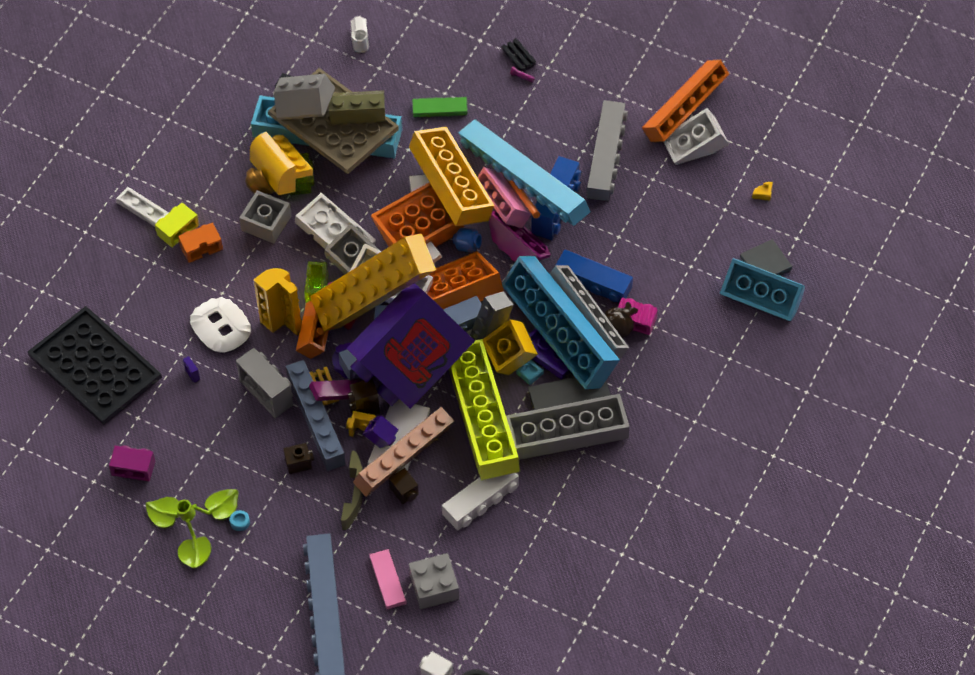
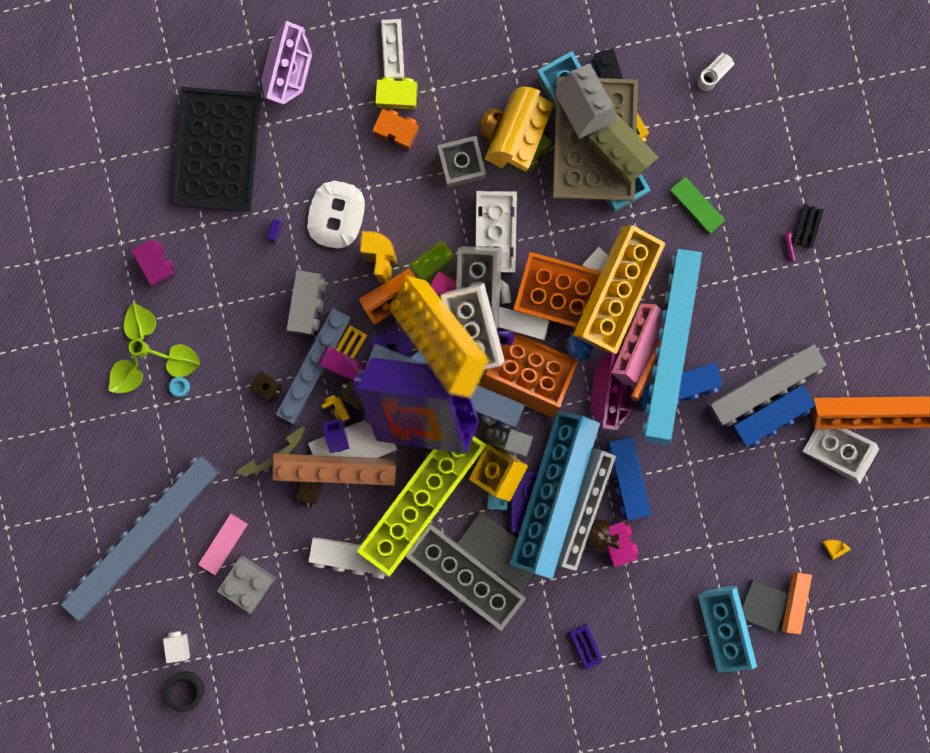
camera: 45 degrees right, 30 degrees up
(81, 272) = (286, 64): none -> lavender wedge
(631, 160) = (773, 415): none -> blue brick
(693, 395) = (579, 630): none -> dark purple tile
(781, 238) = (796, 603): none -> tile

